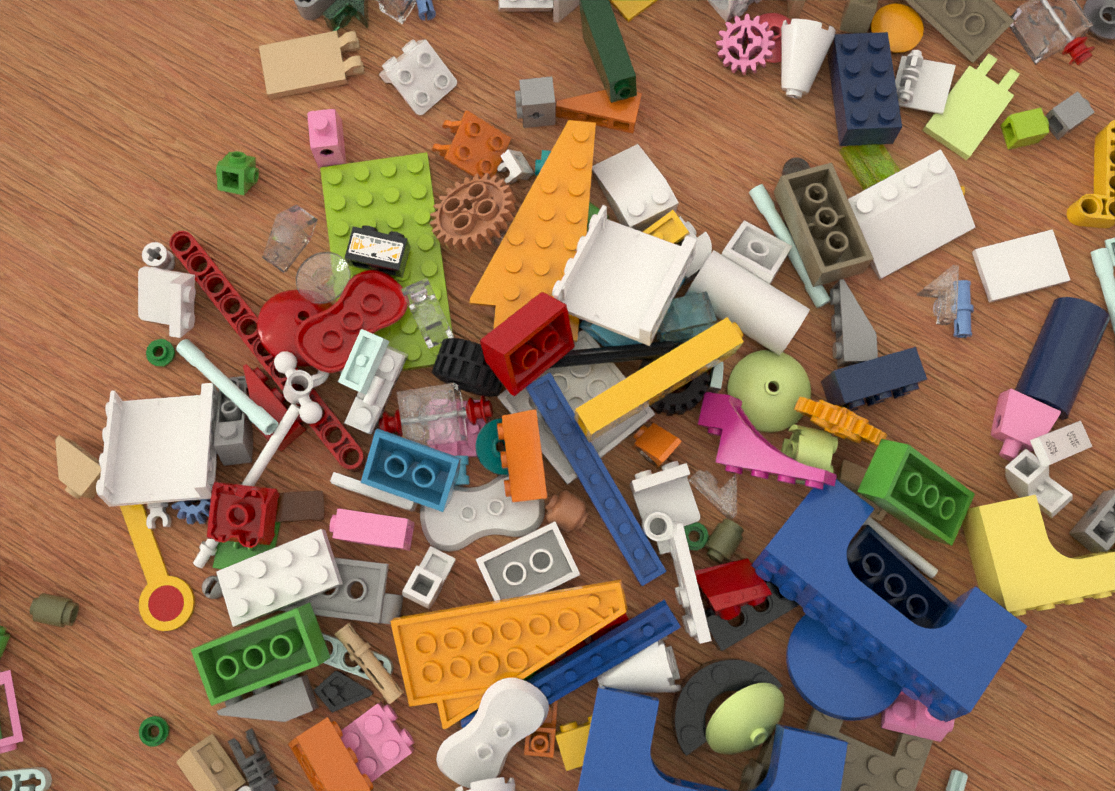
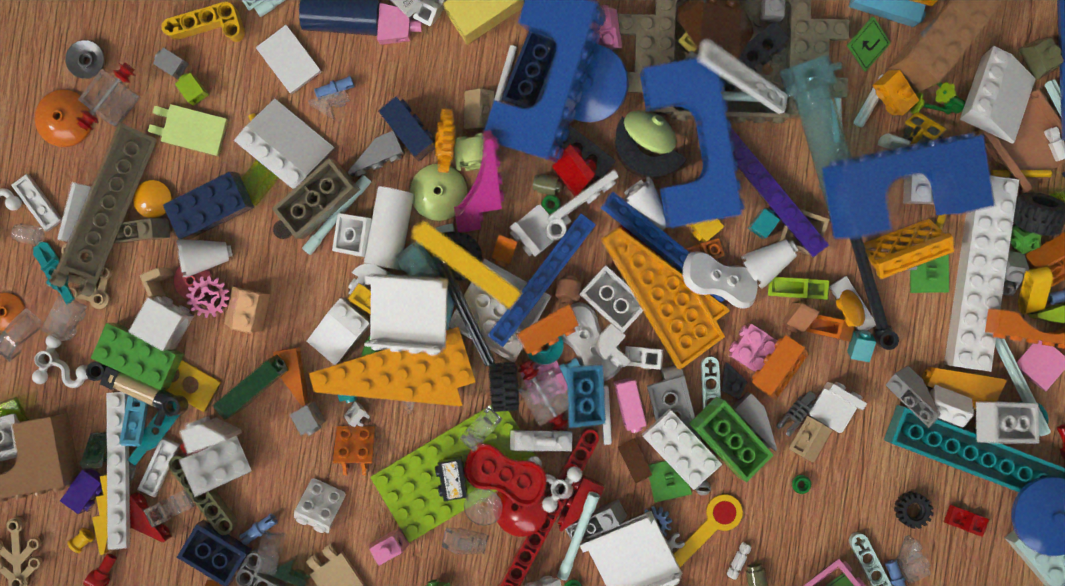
camera: 110 degrees left, 10 degrees up
(90, 595) = (739, 560): none -> white axle
(209, 546) = (681, 501): white bar -> none
(242, 514) = (653, 488): red slope -> none
(363, 361) = (529, 454): light aqua panel -> none
(369, 663) = (712, 367): tan pin -> none
(471, 534) = (607, 344): none -> white brick
(473, 212) = (400, 428): nougat gear -> none
(528, 342) = (475, 356): red slope -> none
(707, 85) = (246, 310): none -> light nougat slope
(724, 498) = (520, 195): clear slope -> none
(916, 491) = (470, 77): bright green brick -> none
(923, 83) = (186, 167): white hinge -> none

